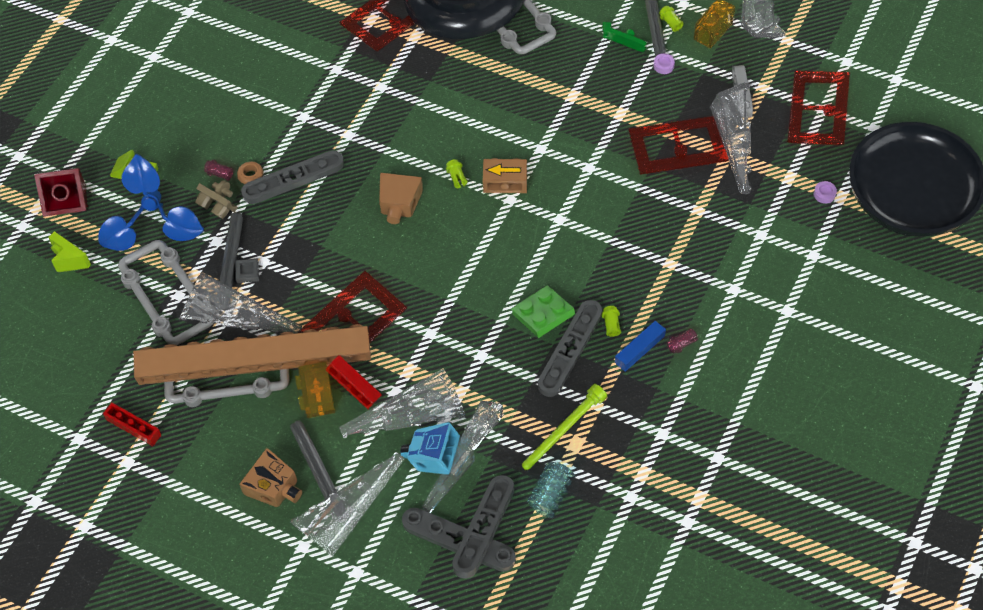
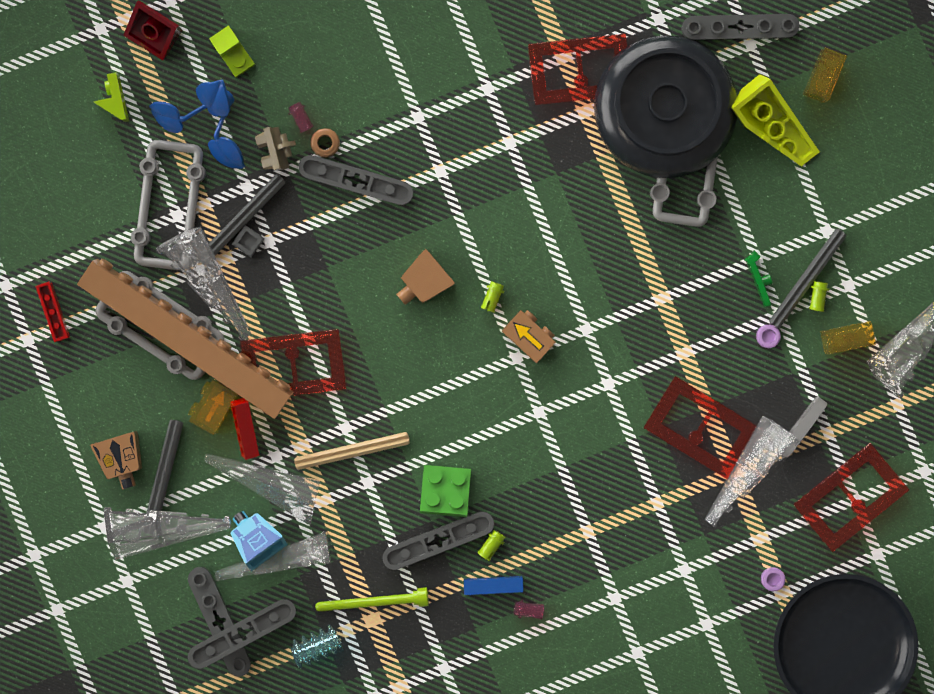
camera: 40 degrees right, 30 degrees up
(449, 340) = (352, 450): none -> tan axle

